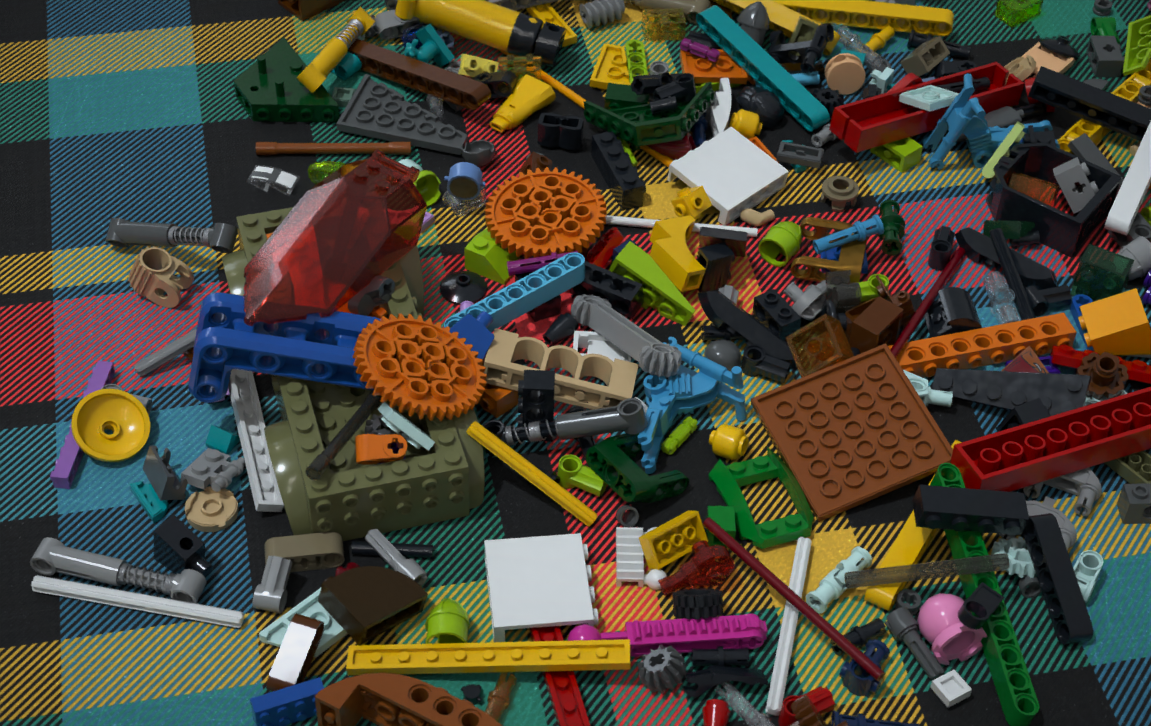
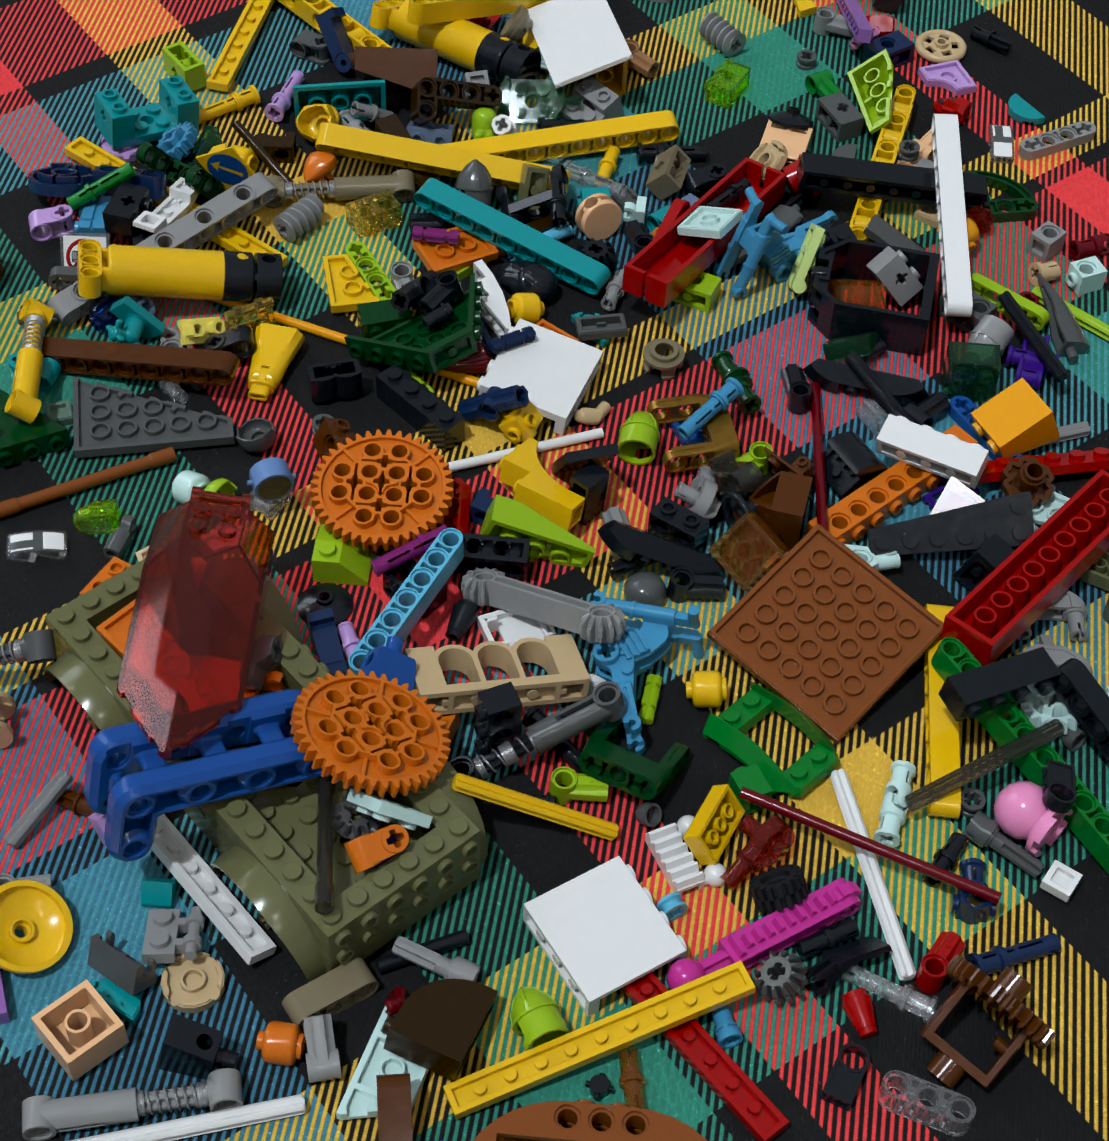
camera: 25 degrees left, 5 degrees up
(108, 507) = (80, 1030): none -> light nougat brick
(246, 571) = (281, 1043): none -> orange head
(447, 302) = (326, 640): none -> dark blue leg
(596, 692) = (726, 1029): none -> dark azure pin
(605, 588) = (672, 906): none -> medium azure bush
(673, 181) = (493, 403): none -> dark blue piece
(713, 139) = (511, 339): none -> dark blue axle
(1025, 322) = (932, 450): none -> white brick

